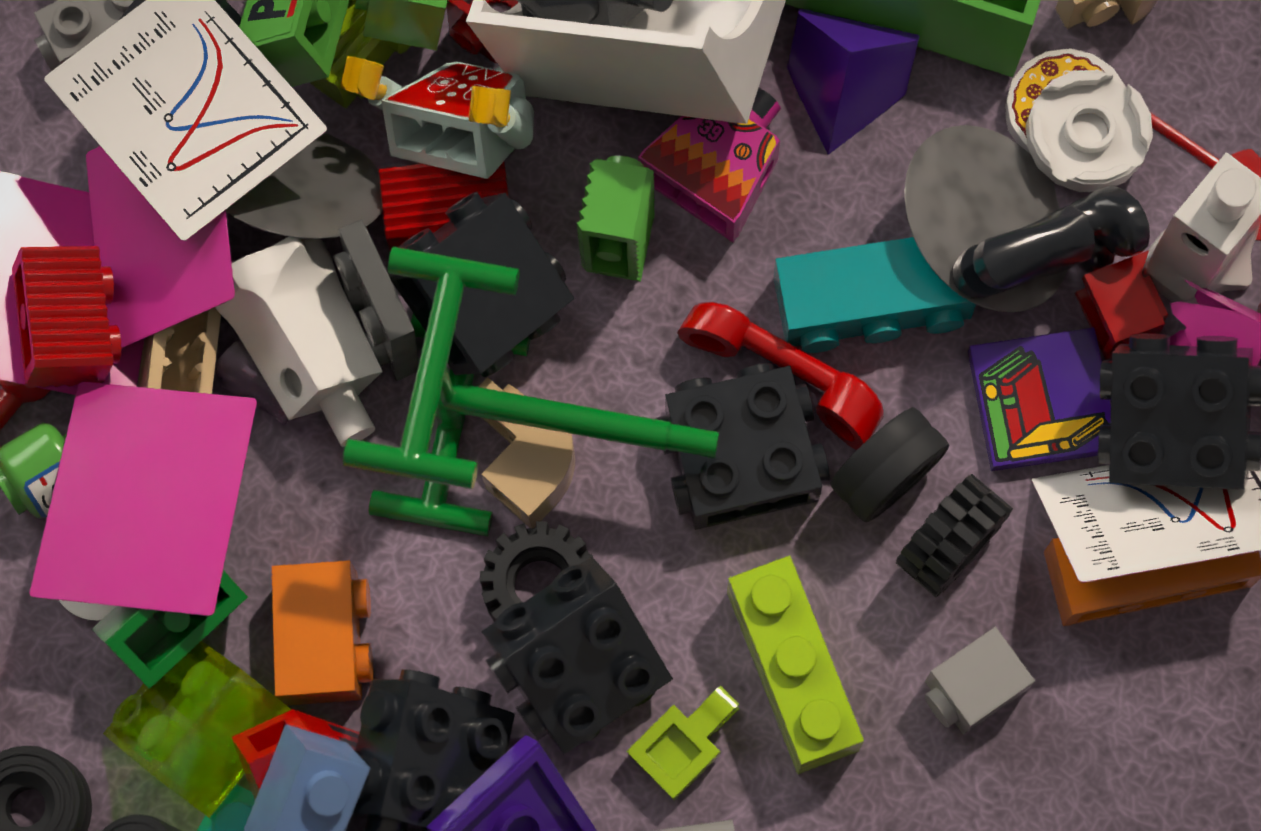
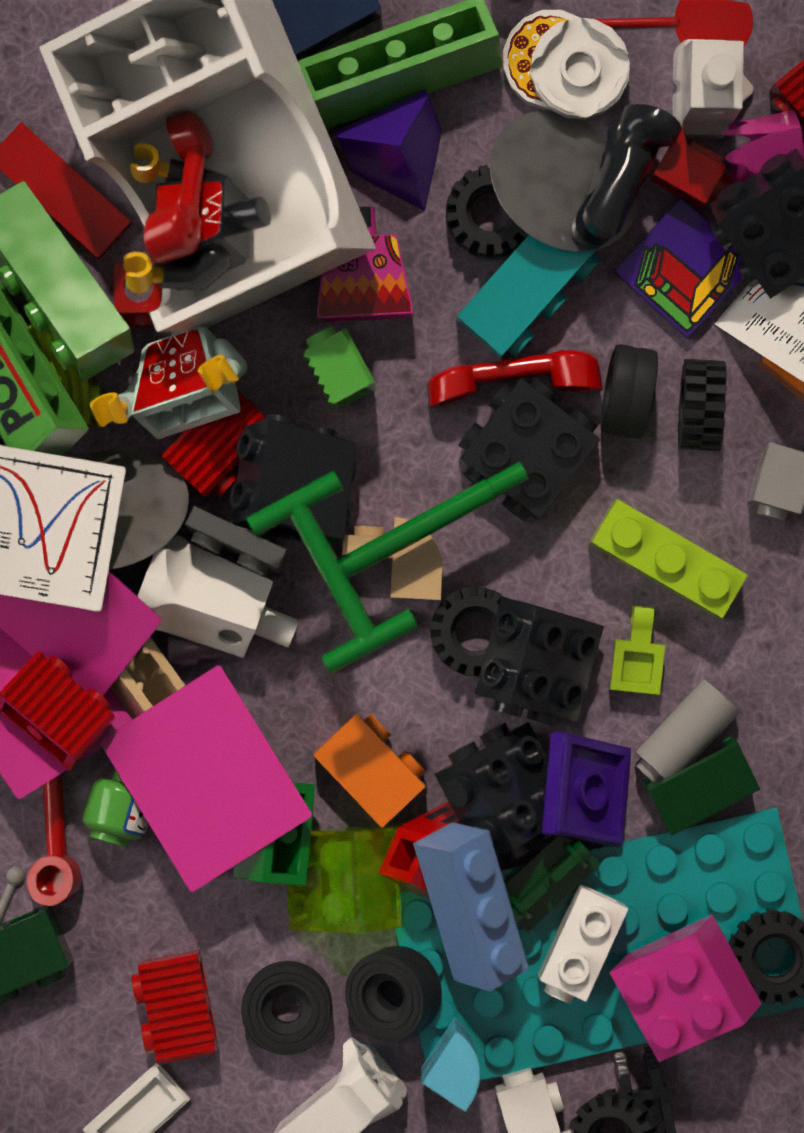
camera: 45 degrees left, 15 degrees up
(856, 180) = (464, 229): none -> black tyre

